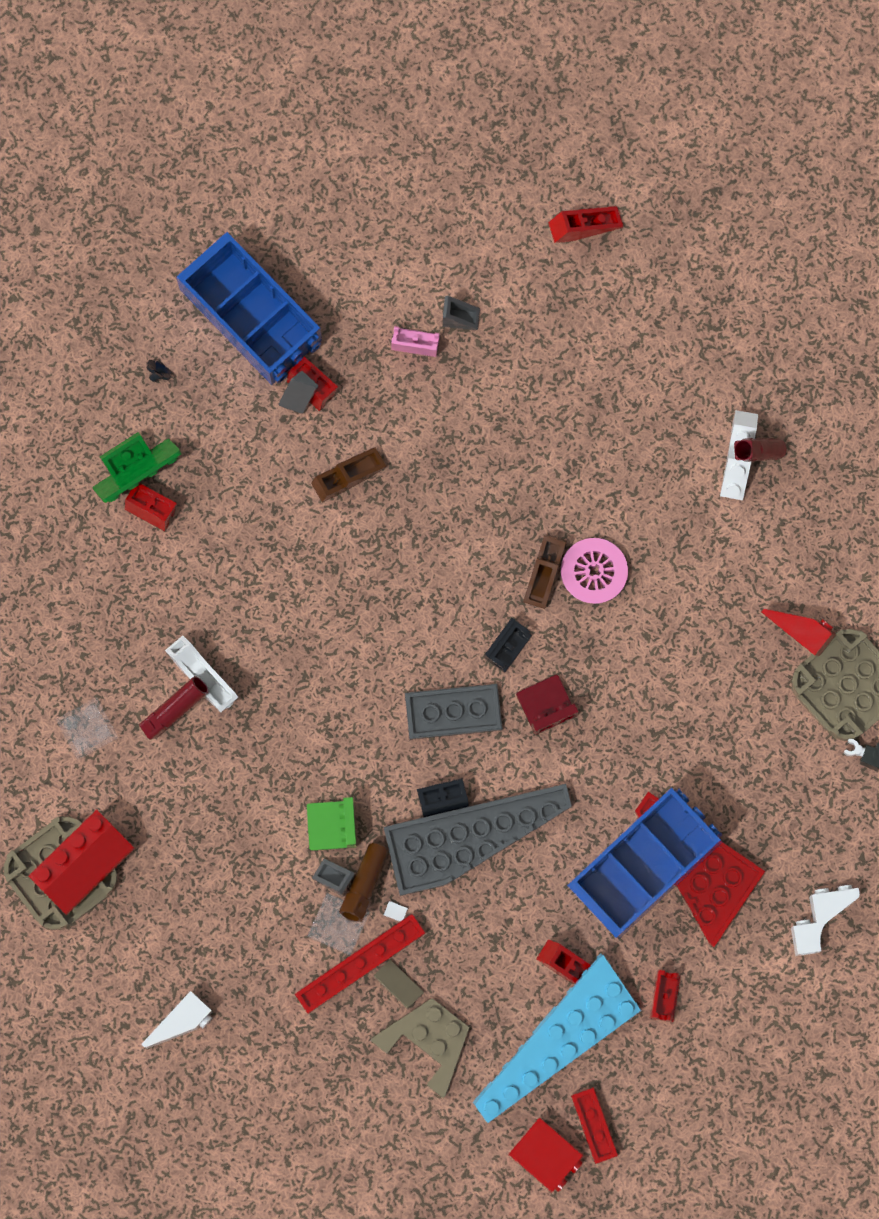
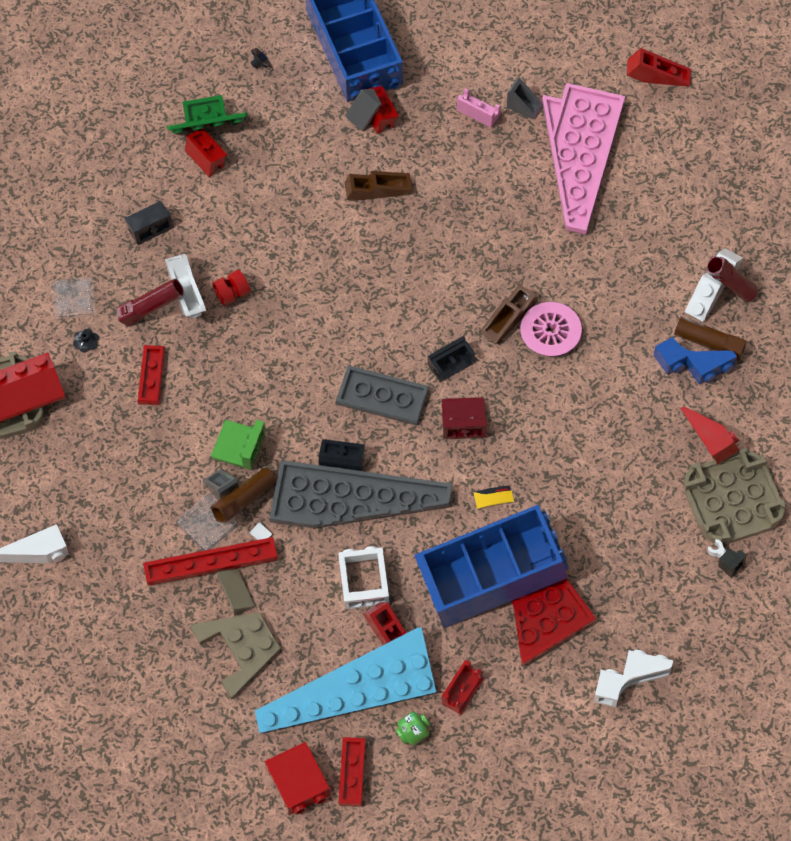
camera: 25 degrees right, 15 degrees down
(123, 776) = (85, 340): none -> black plant
(127, 611) = (149, 222): none -> black hinge
(207, 783) = (151, 375): none -> red tile
(253, 648) = (233, 286): none -> red wheel
(530, 942) = (369, 597): none -> white window
(537, 337) = (580, 142): none -> bright pink wing
(610, 778) = (493, 496): none -> yellow sticker
(635, 1058) = (413, 728): none -> bright green head
(758, 517) = (709, 337): none -> reddish brown piece
(760, 552) = (701, 364): none -> blue arch

